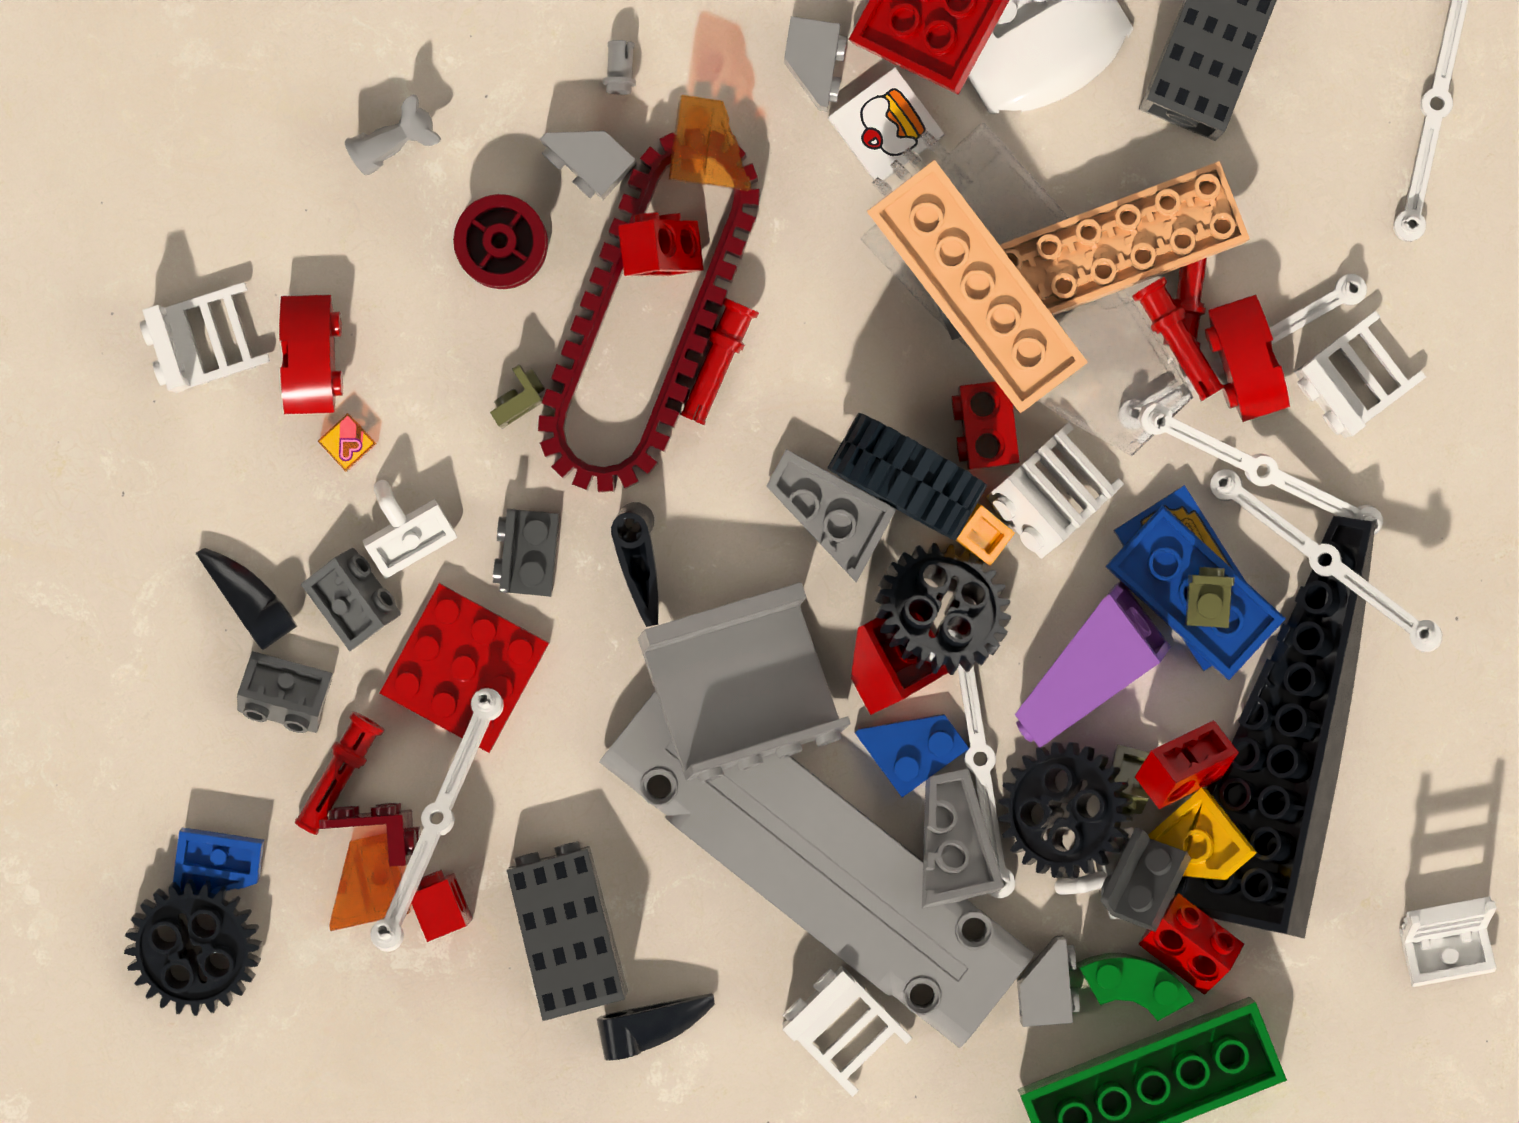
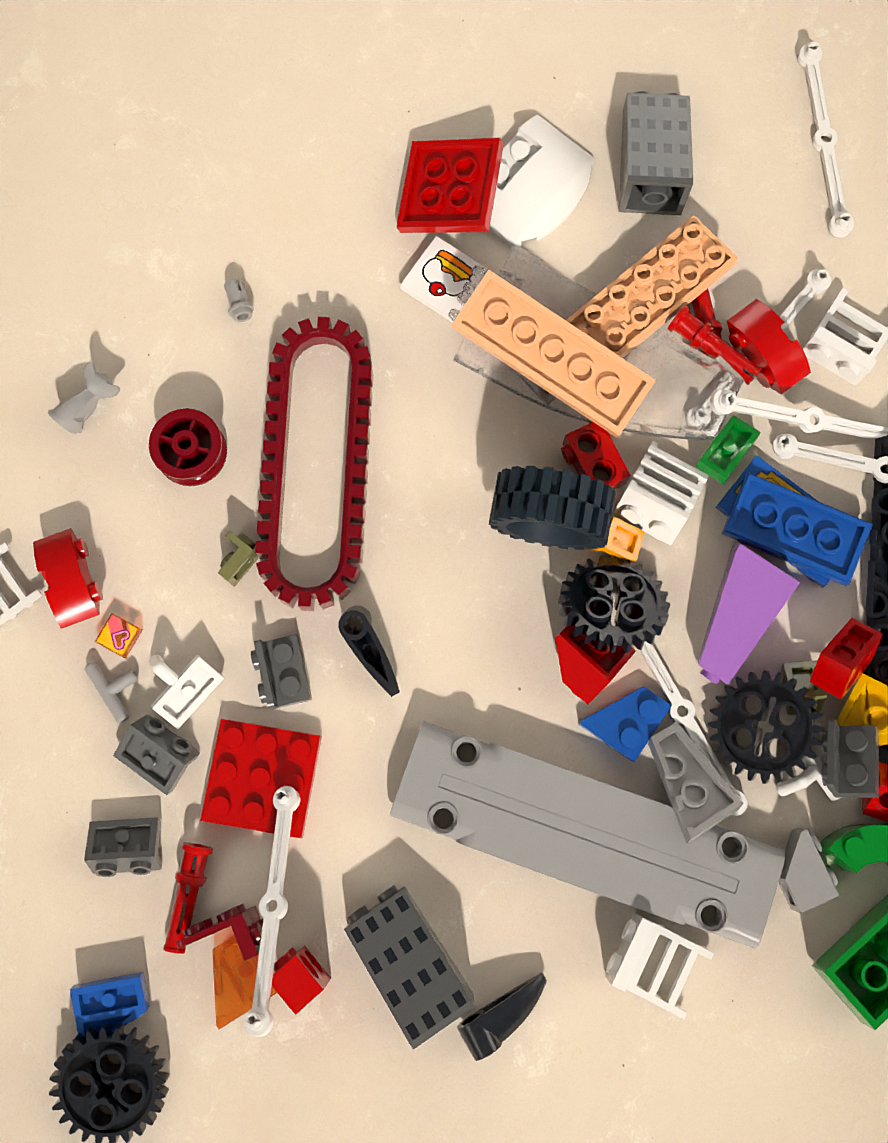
camera: 10 degrees left, 10 degrees down
(249, 597) = (78, 782): black piece -> none
(317, 504) = (109, 690): none -> light grey piece
(592, 157) = (236, 366): light grey slope -> none
(660, 245) = (307, 408): red brick -> none
(705, 147) = (317, 326): clear orange wing -> none
(726, 341) = (380, 466): red pin -> none
(741, 684) = (478, 715): light grey panel -> none
(811, 58) = (373, 247): light grey slope -> none
(833, 511) = (503, 561): light grey wing -> none
(1151, 468) = (728, 449): none -> green plate
(1209, 598) = (811, 525): olive bracket -> none

